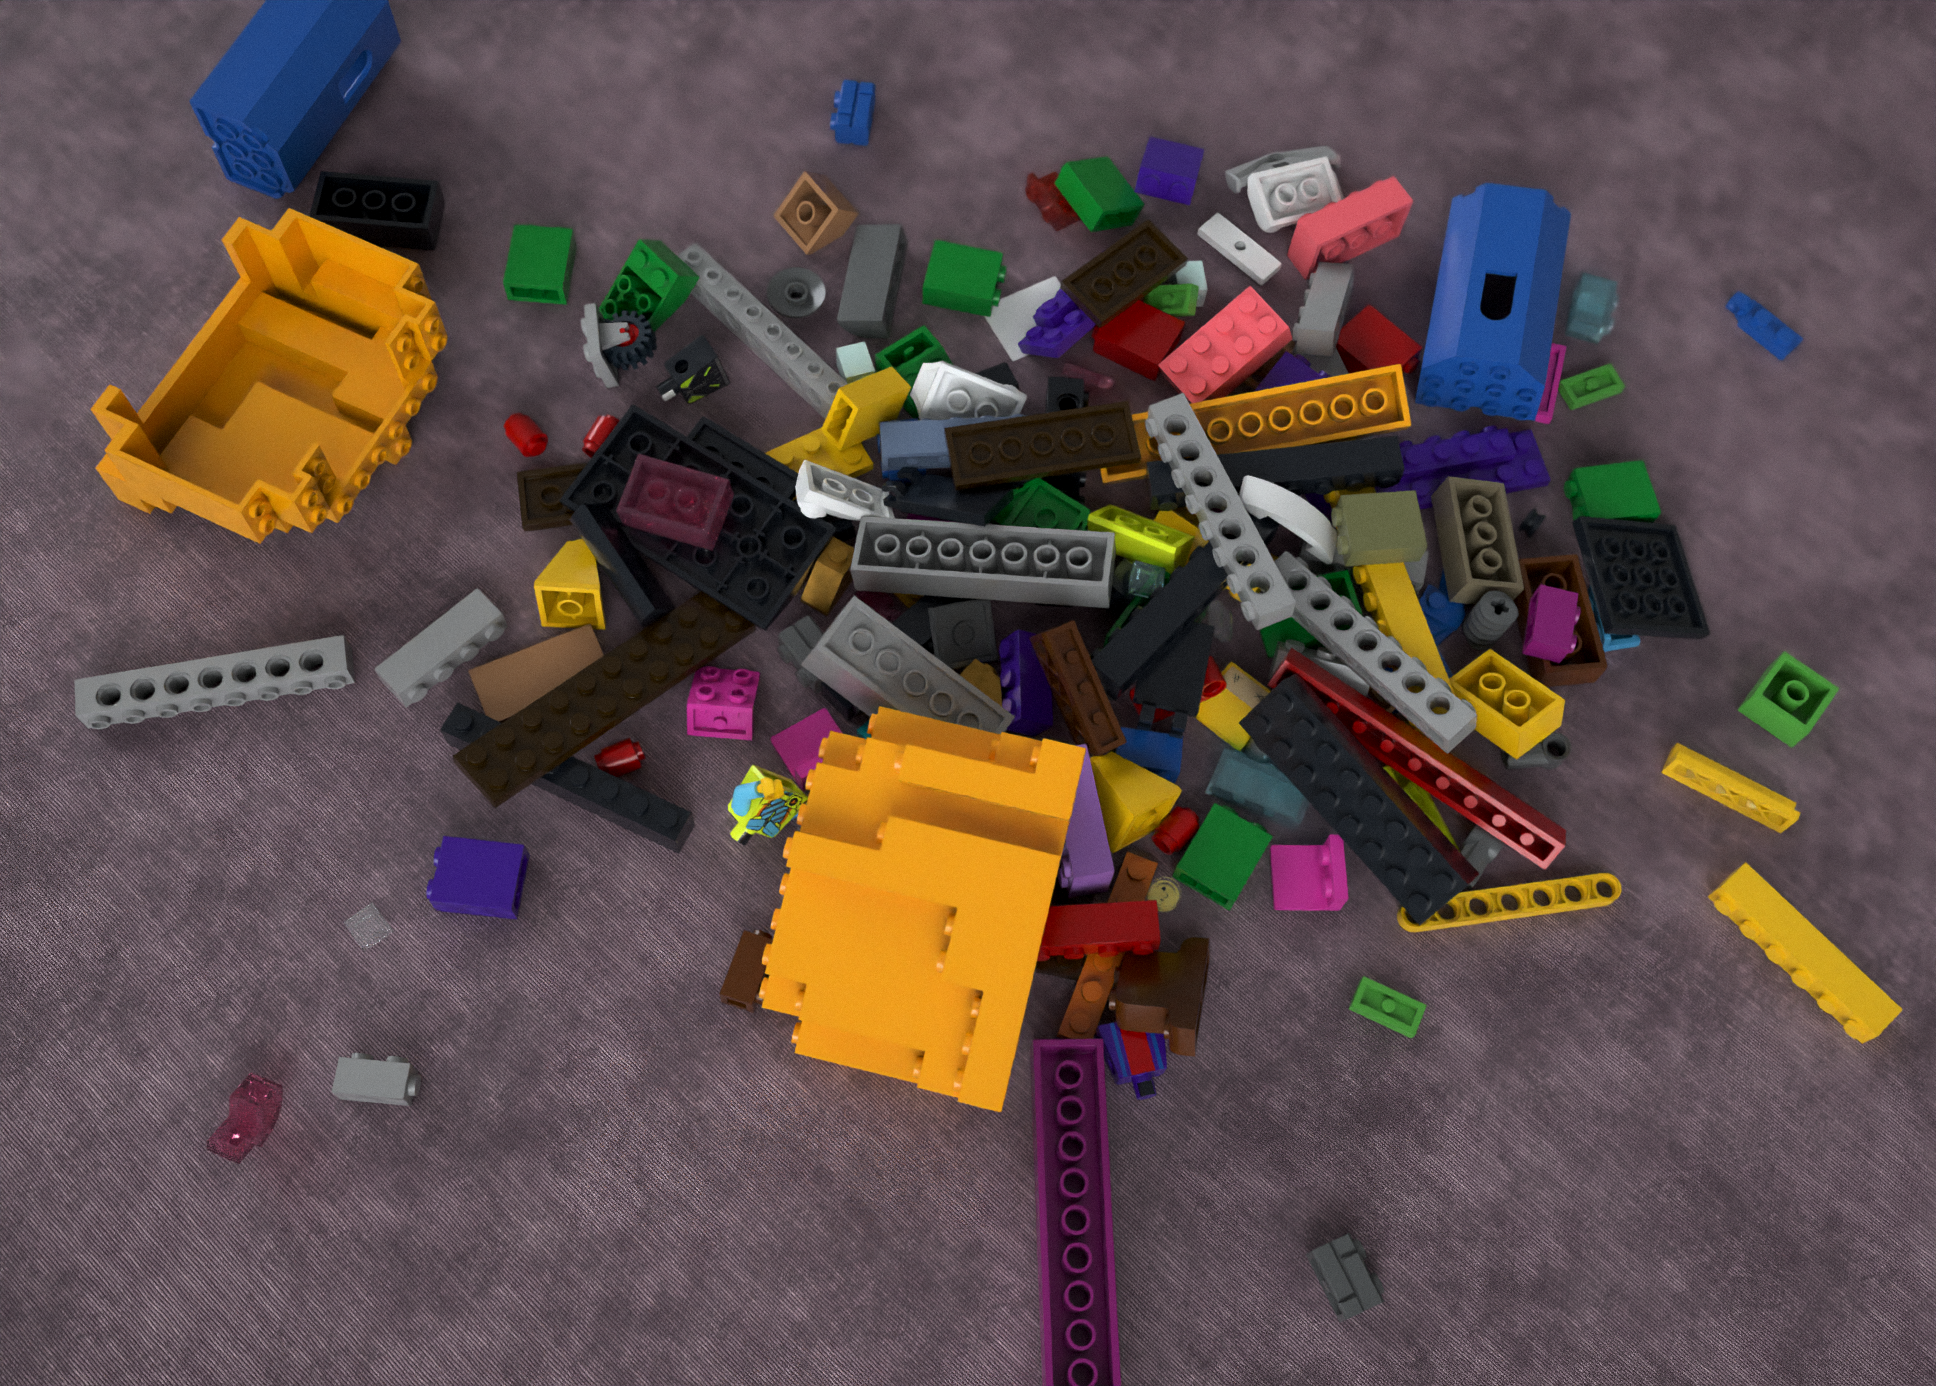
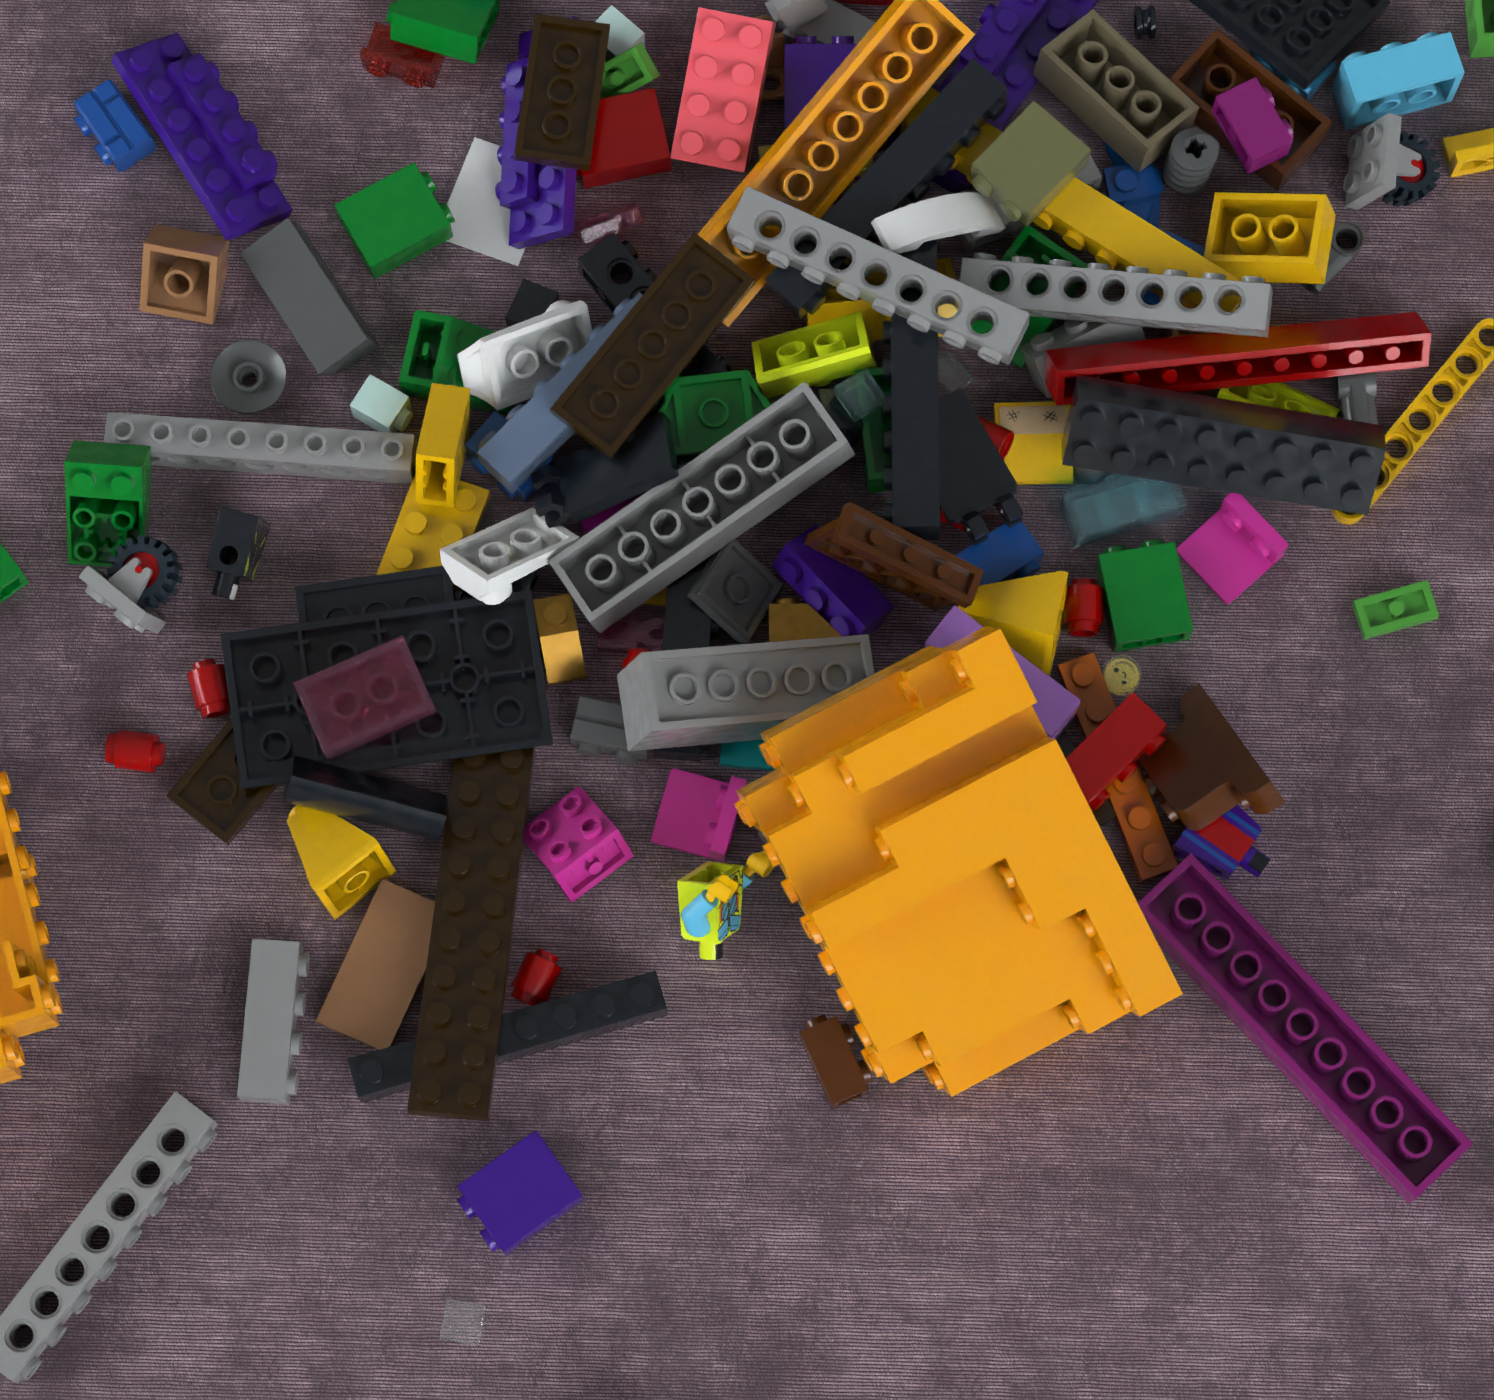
camera: 35 degrees left, 10 degrees up
(900, 153) = (205, 134): none -> dark purple plate
(1625, 727) = (1388, 165): none -> light grey plate
(1675, 679) = (1397, 79): none -> medium azure brick

